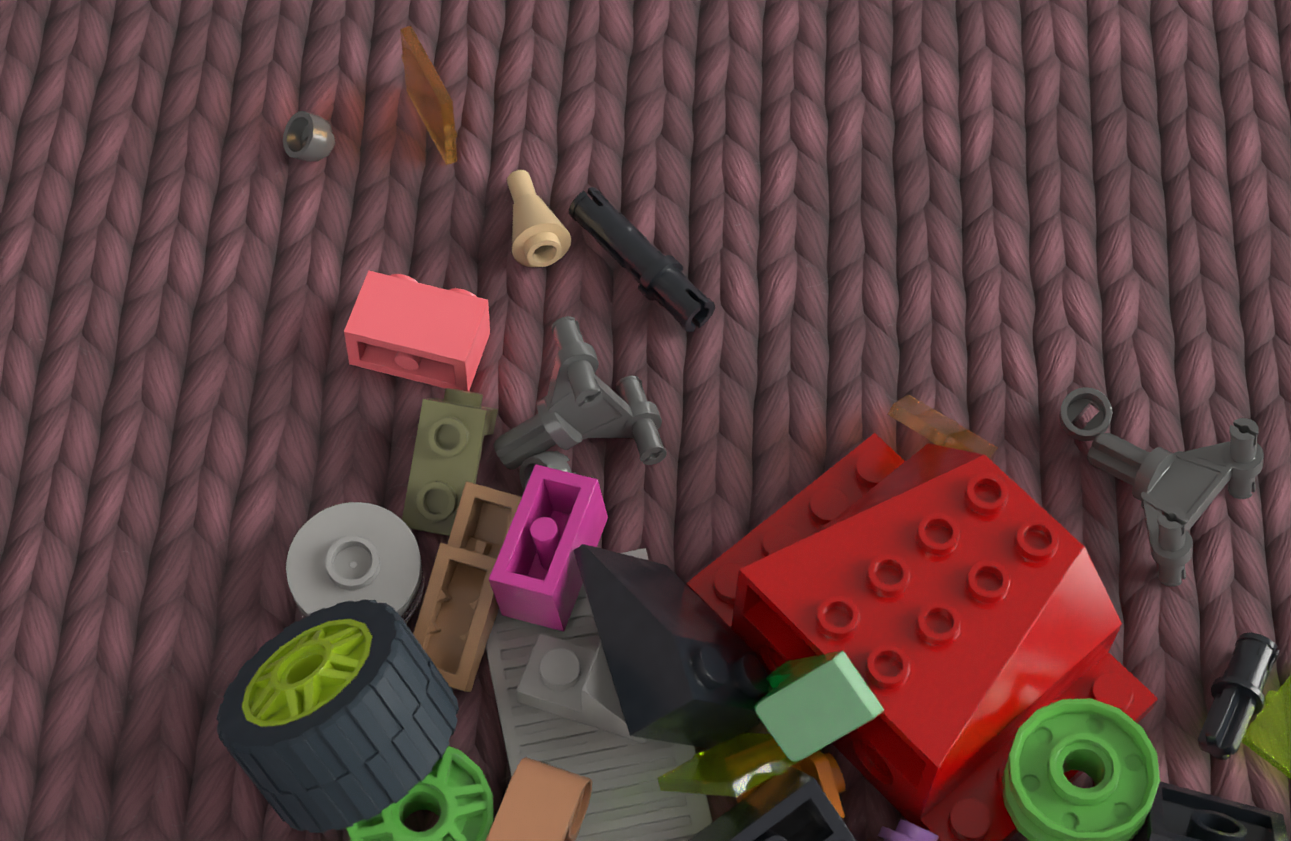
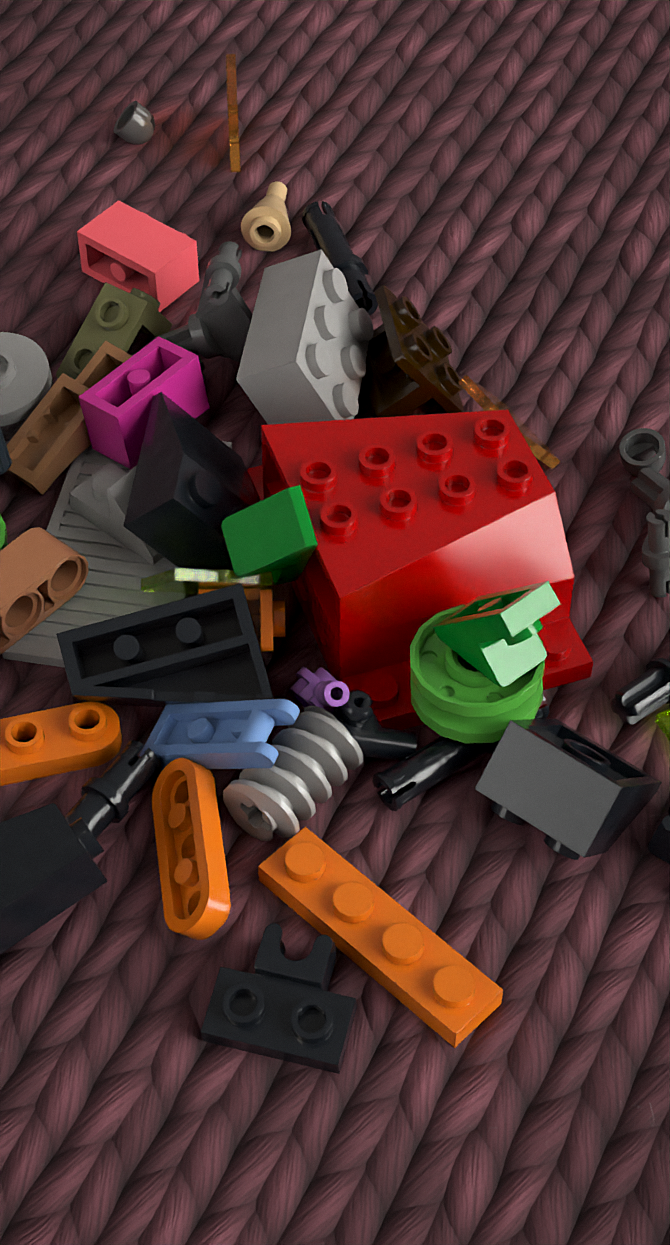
camera: 25 degrees right, 10 degrees down
(696, 420) = (305, 344): none -> light grey brick
(790, 385) = (408, 361): none -> dark brown bracket
(1108, 738) = (501, 631): none -> slope

